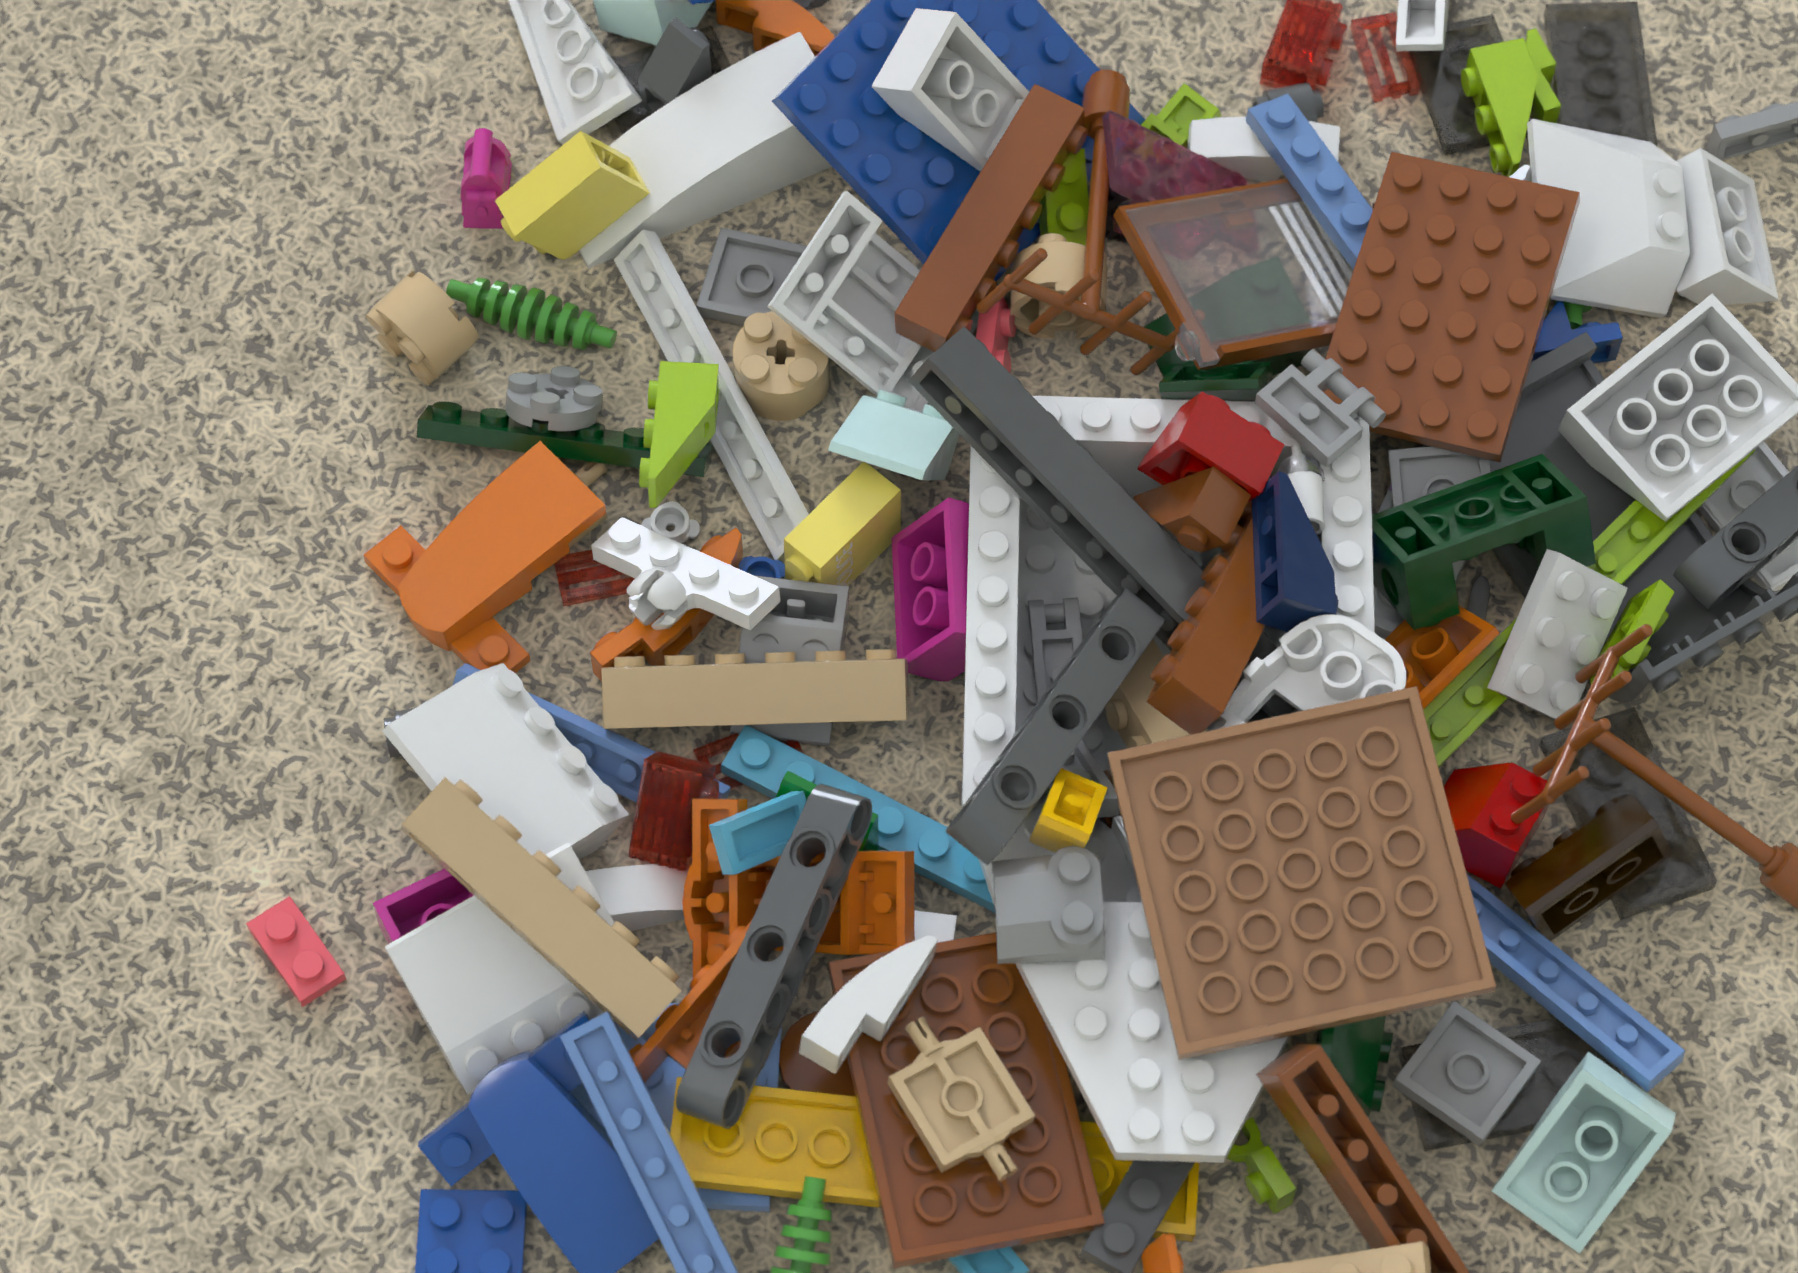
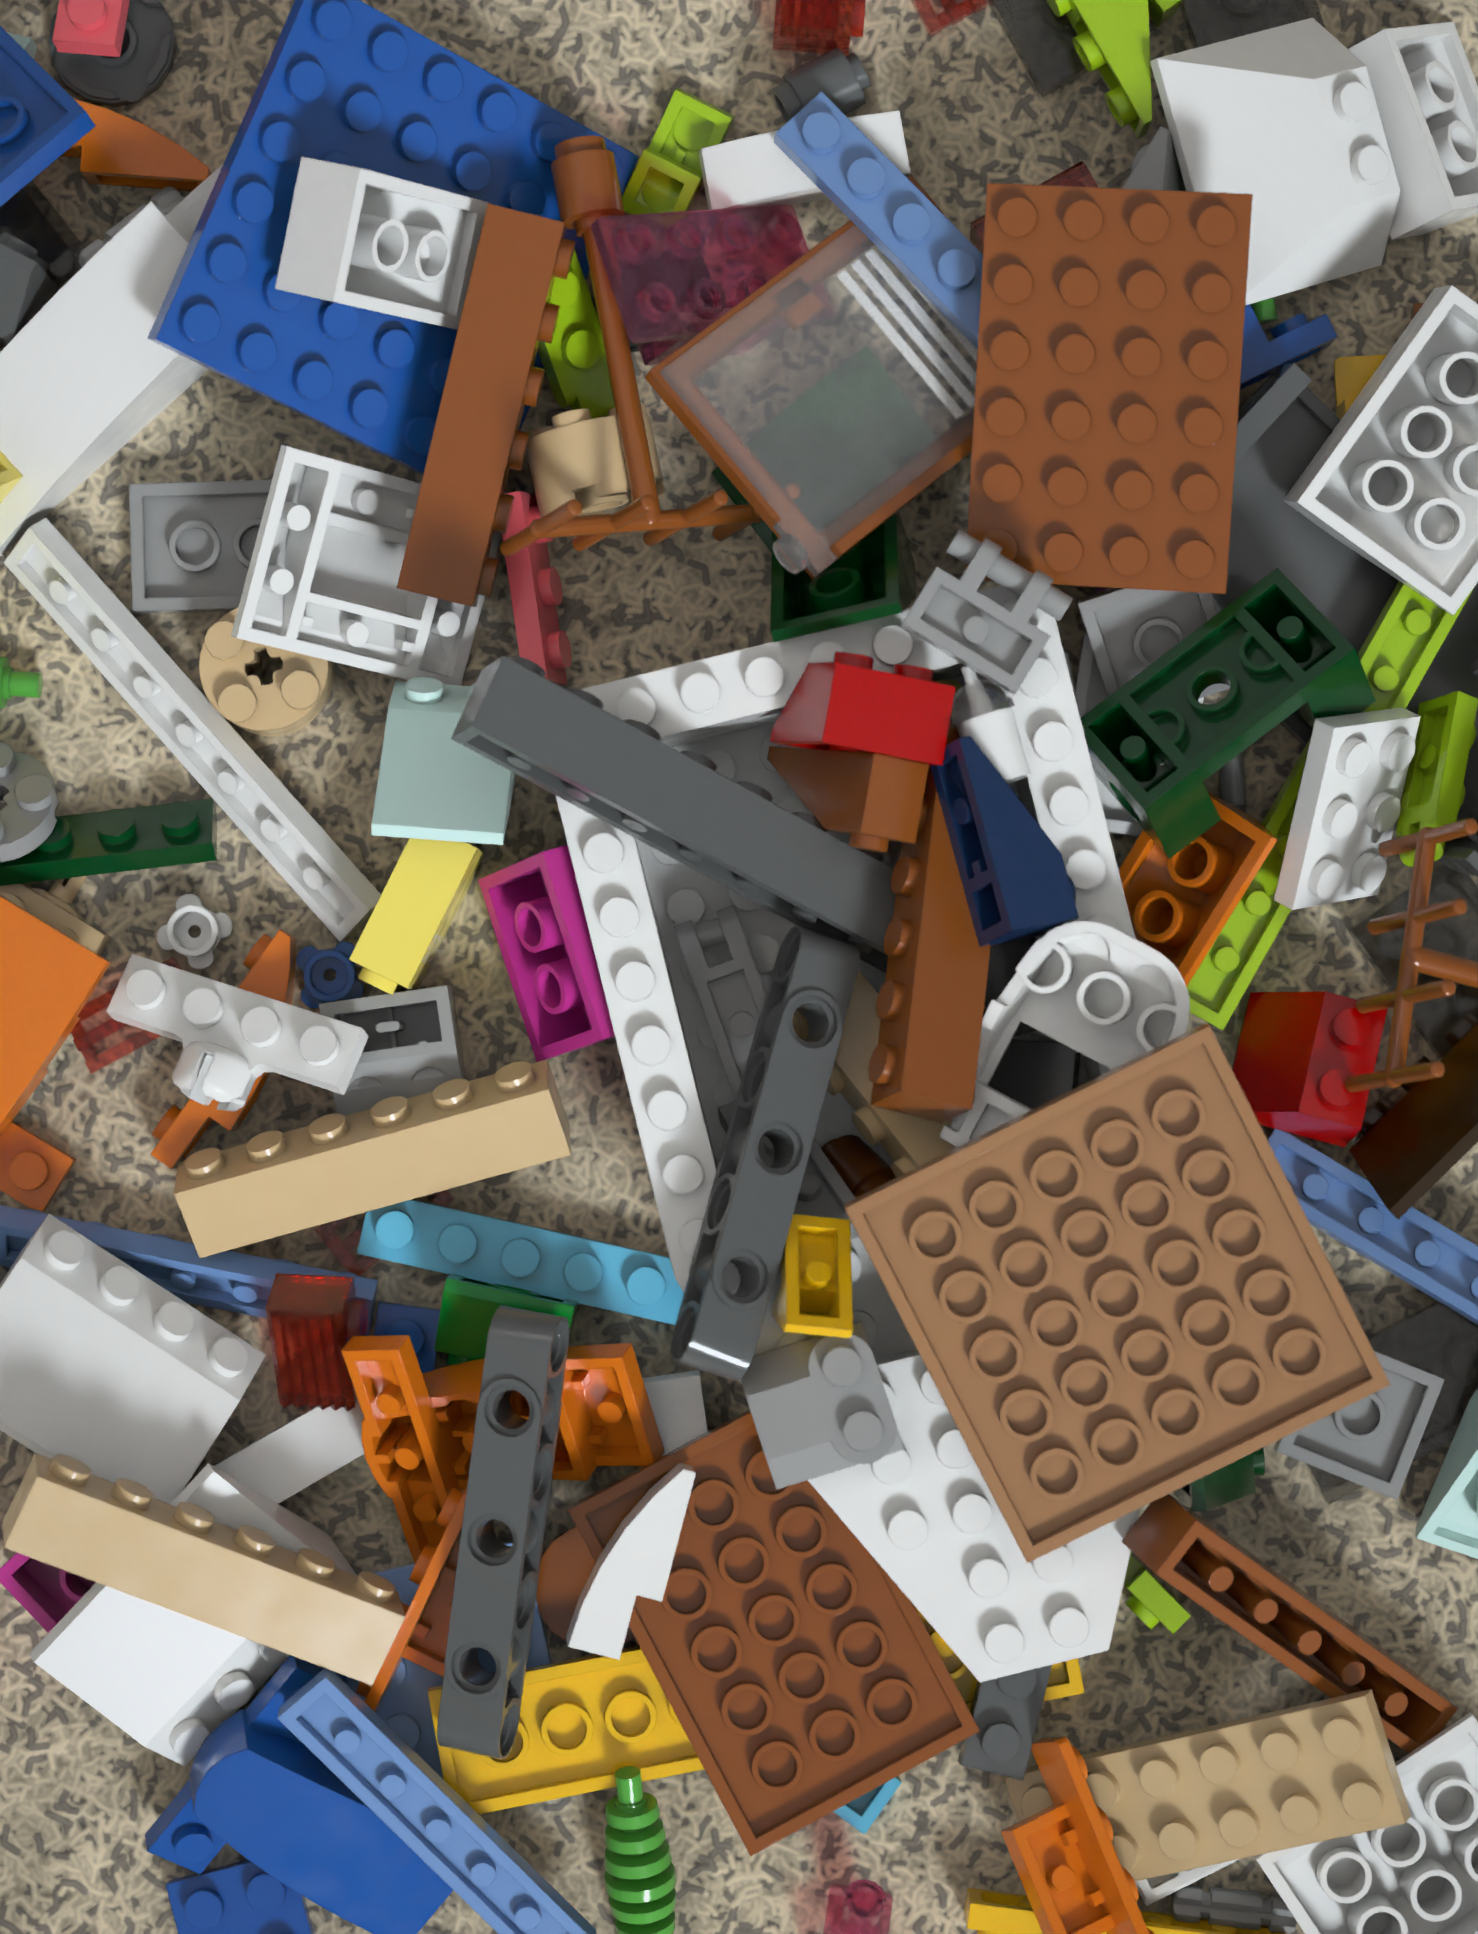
camera: 15 degrees left, 25 degrees up
(682, 423) = (168, 809): lime slope -> none
(756, 833) = (437, 1374): medium azure tile -> none
(960, 1099) = (775, 1647): tan plate -> none

